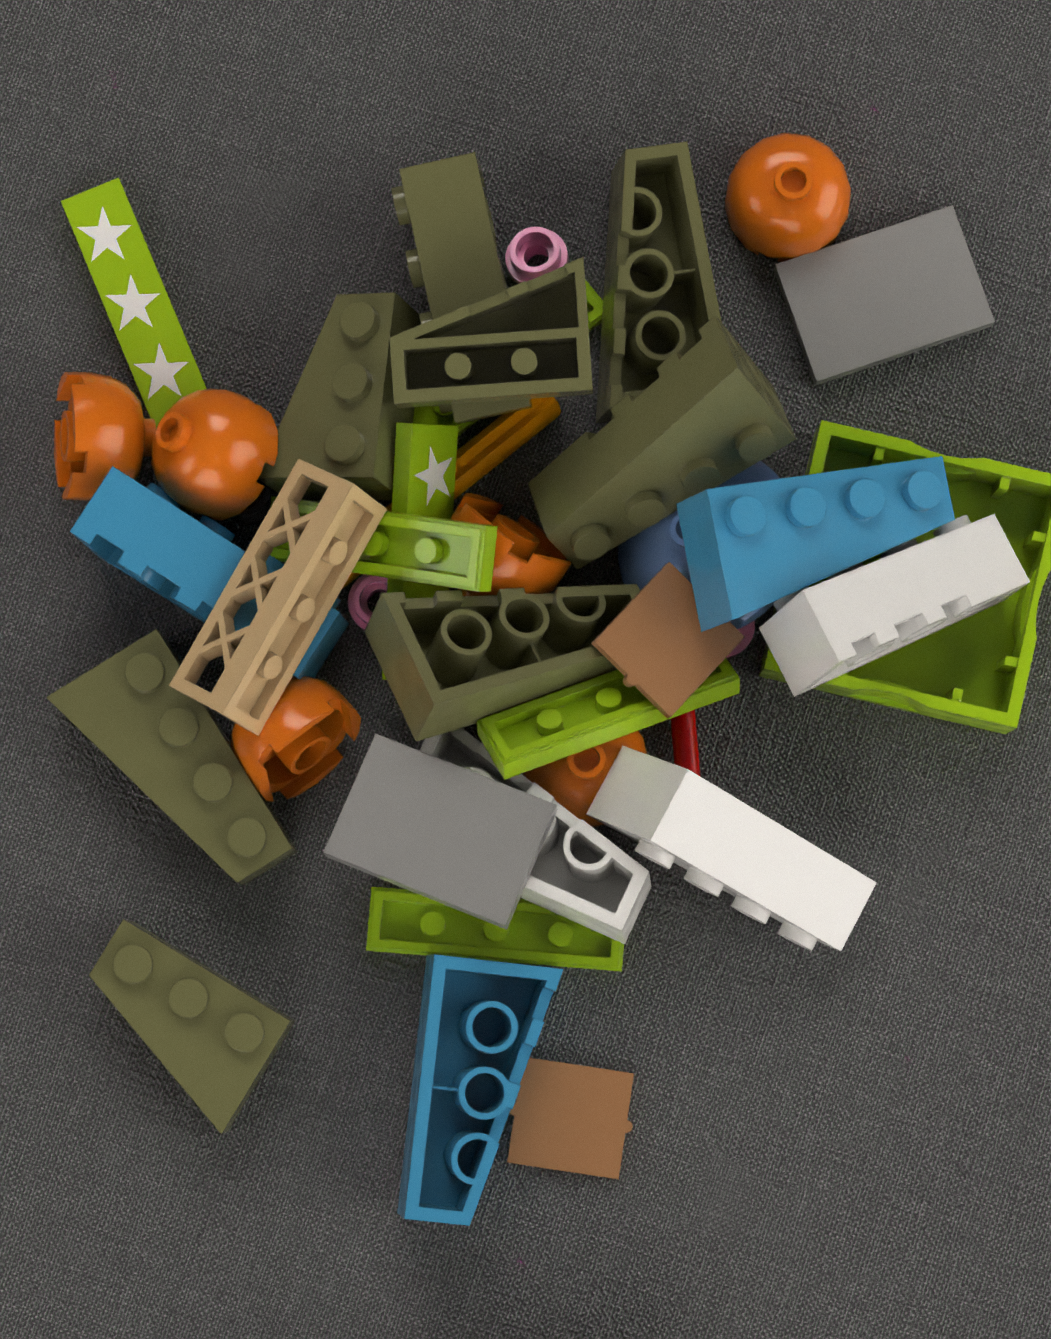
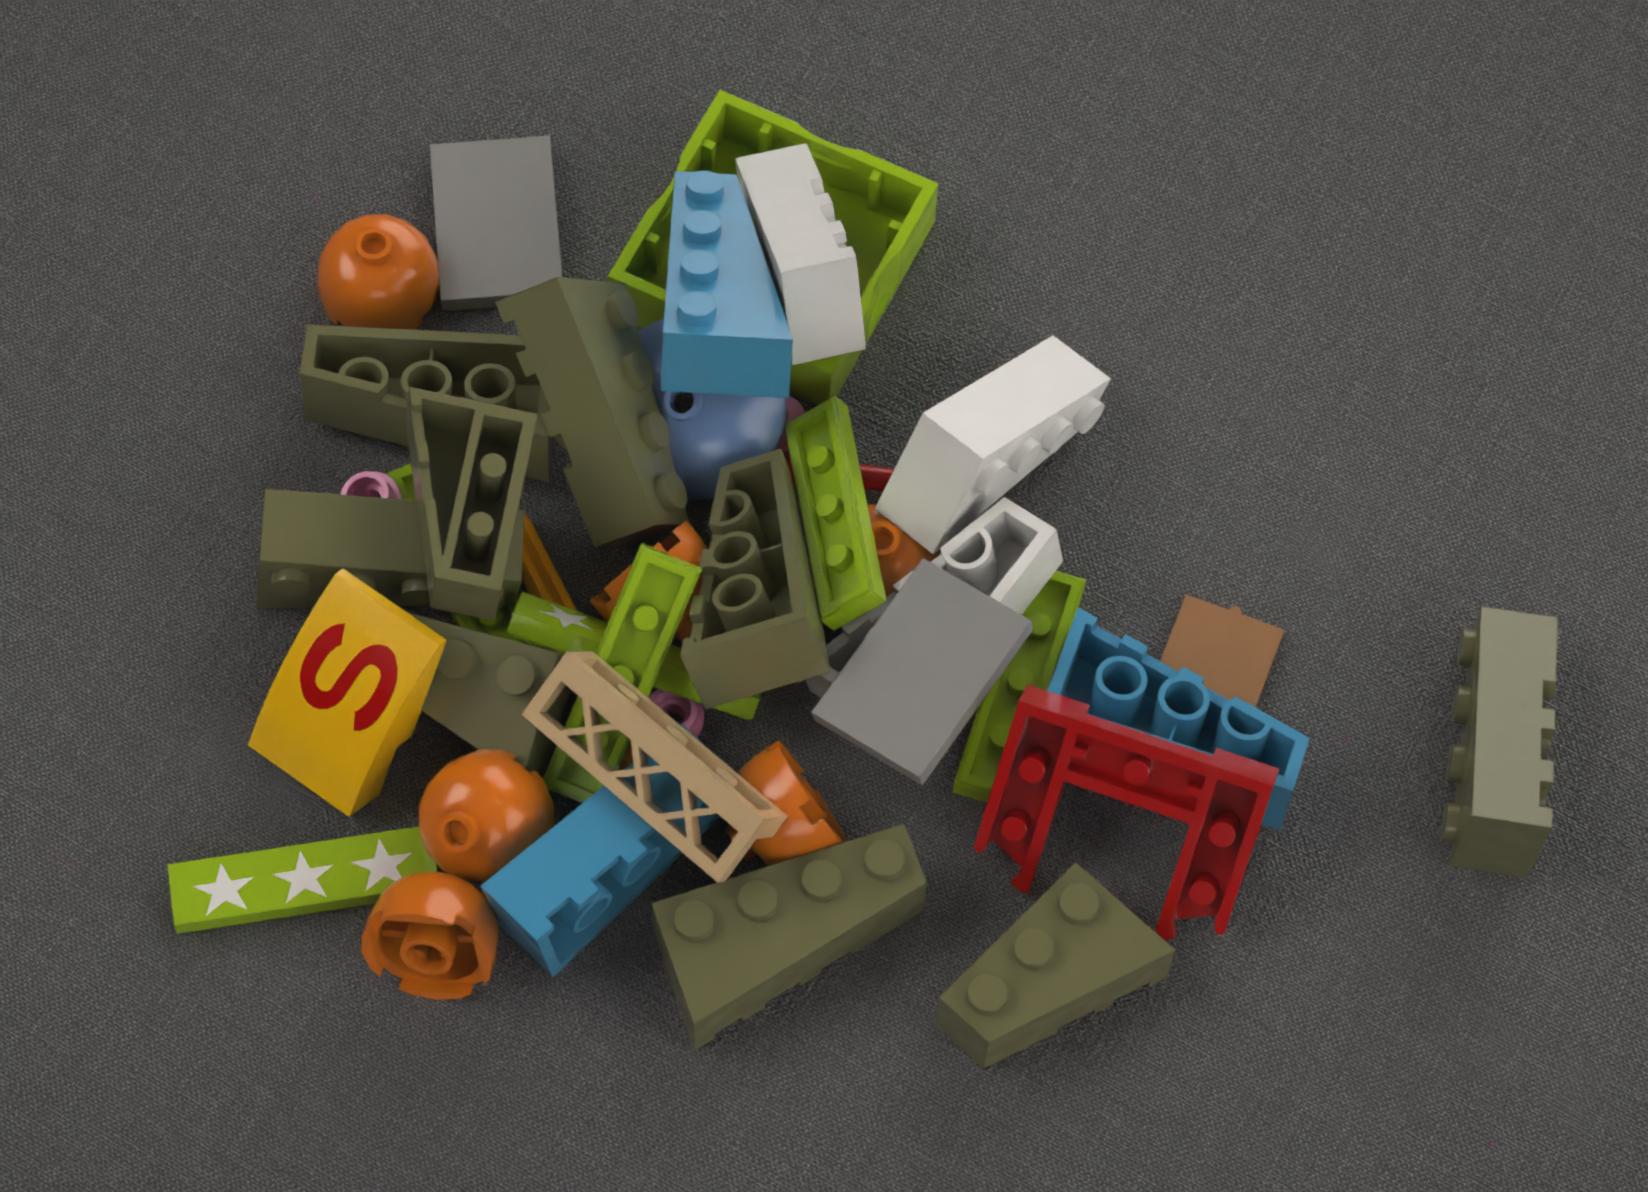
camera: 80 degrees left, 20 degrees down
(300, 290) = (347, 693): none -> yellow slope
(373, 1147) = (1061, 743): none -> red wedge
(661, 642) = (786, 439): medium nougat piece -> none

